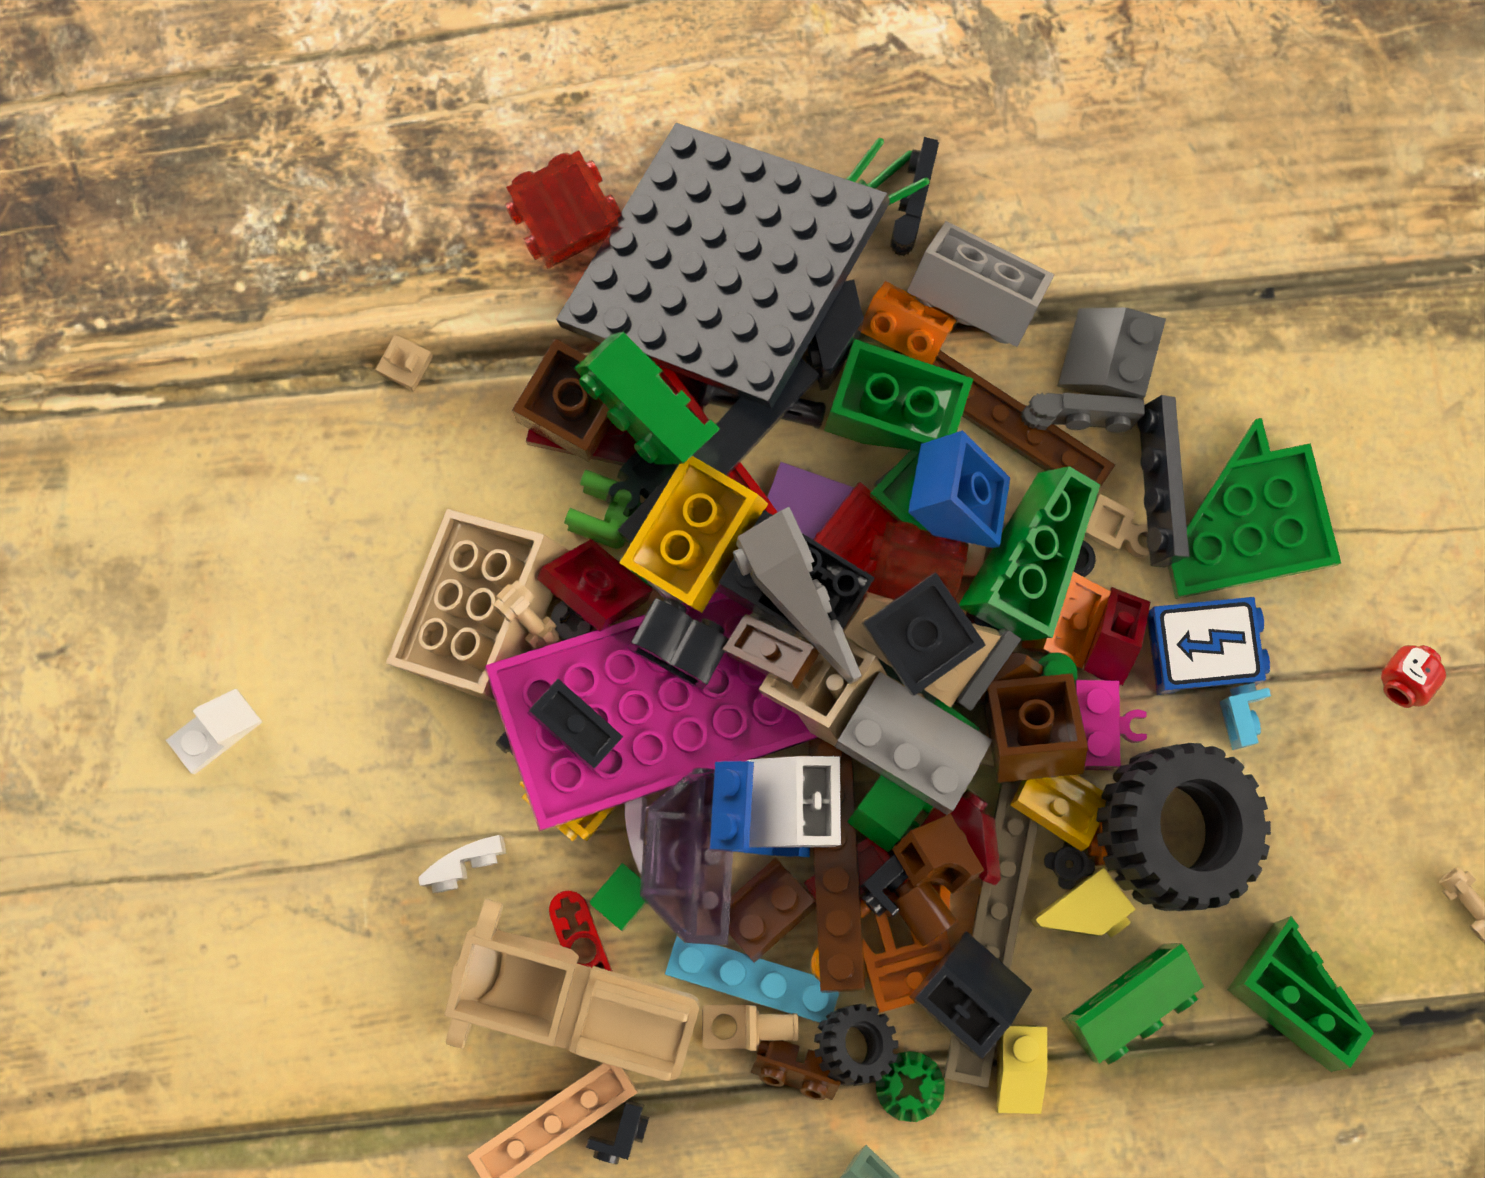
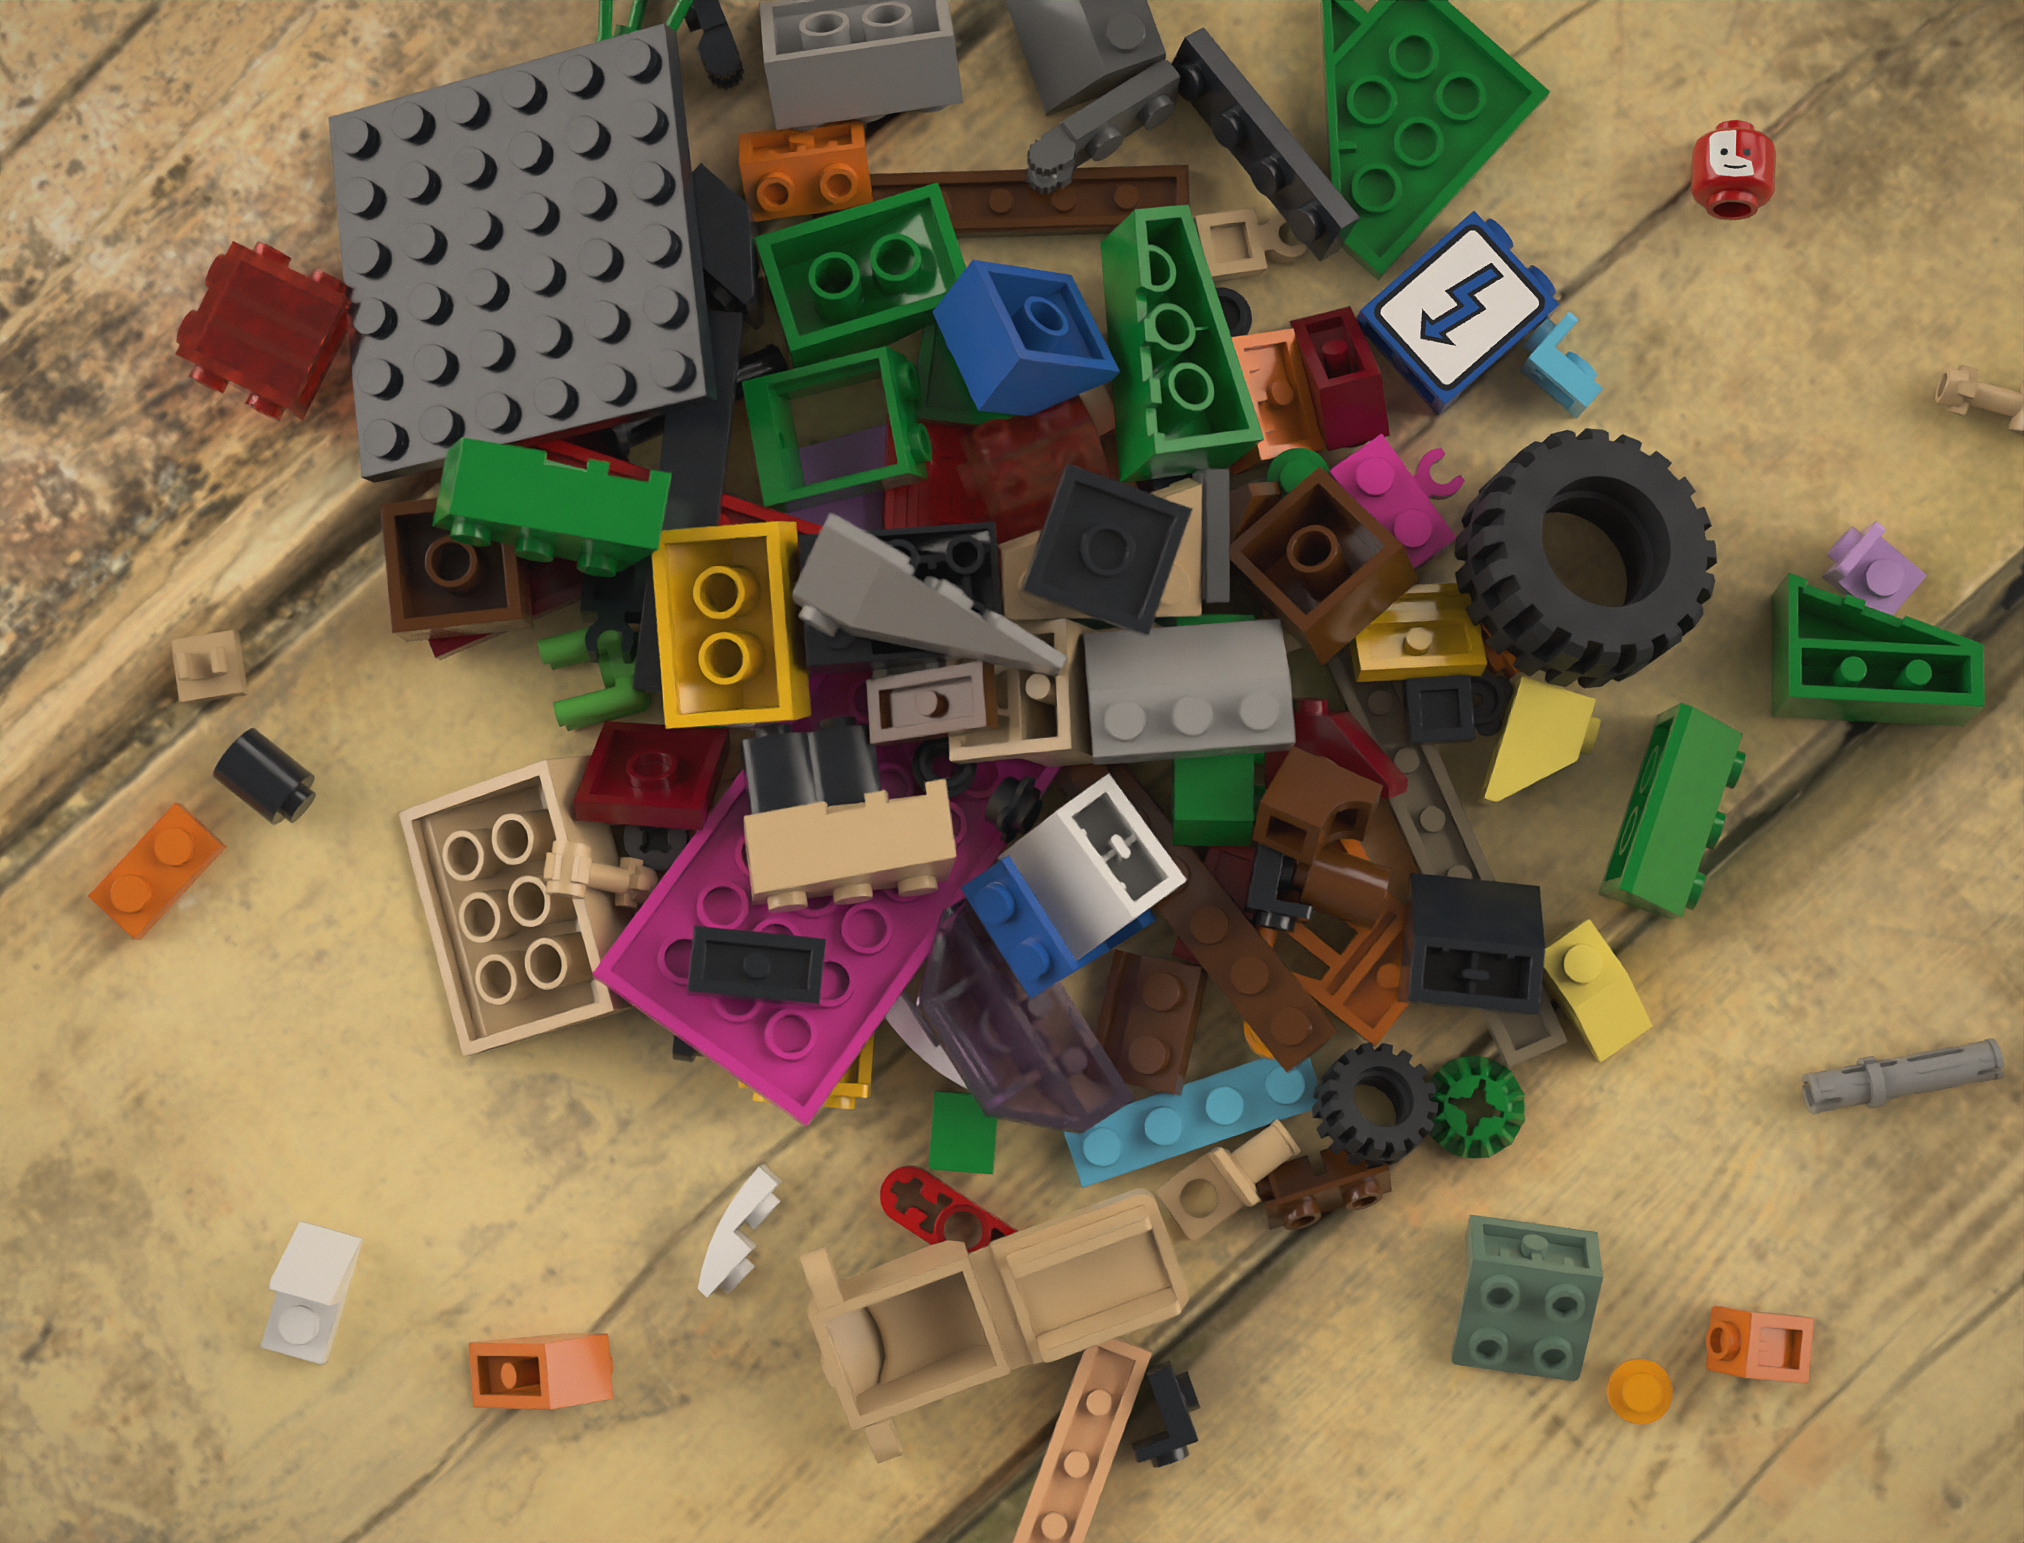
camera: 25 degrees left, 5 degrees up
(298, 450) = (157, 871): none -> orange plate
(303, 861) = (541, 1371): none -> orange slope
(390, 441) = (265, 778): none -> black brick
(671, 698) = (850, 849): none -> tan wedge
(750, 677) = (922, 770): none -> black plate
(775, 739) = (1014, 807): none -> black plate
(788, 455) = (776, 439): none -> green window
(1044, 853) = (1438, 710): none -> black plate
(1340, 948) = (1872, 569): none -> lavender bracket

